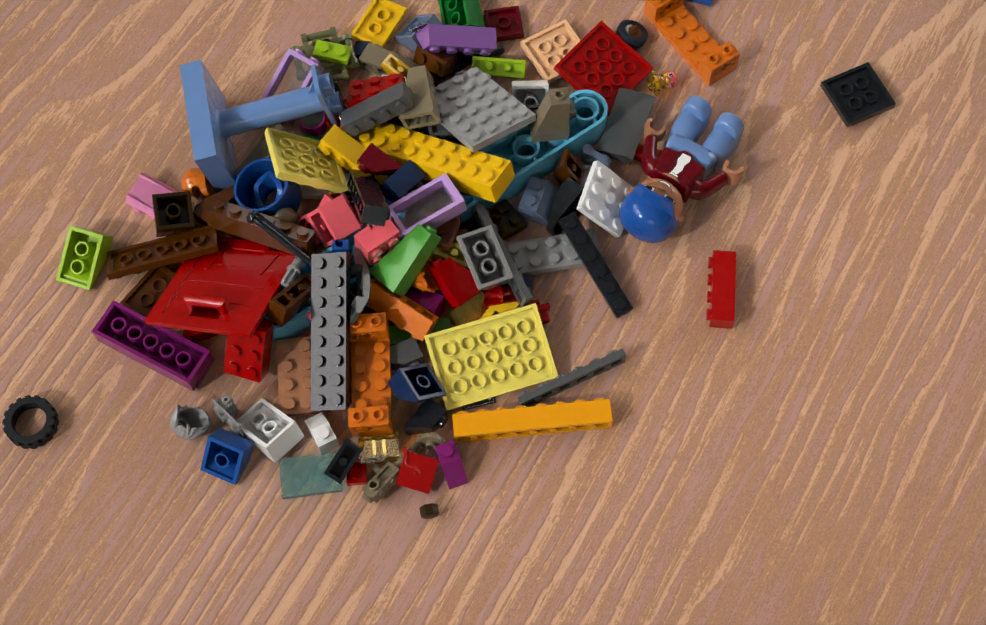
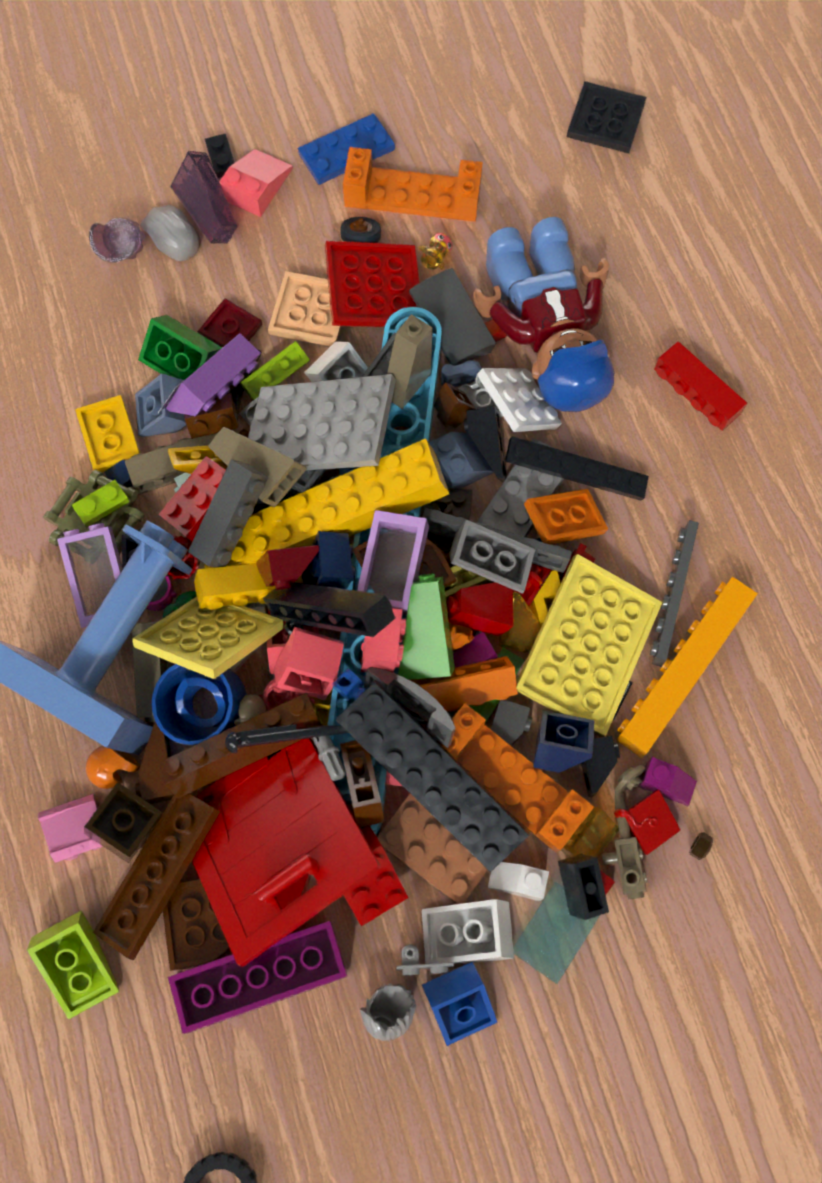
camera: 50 degrees left, 5 degrees up
(558, 282) = (565, 516): none -> orange plate

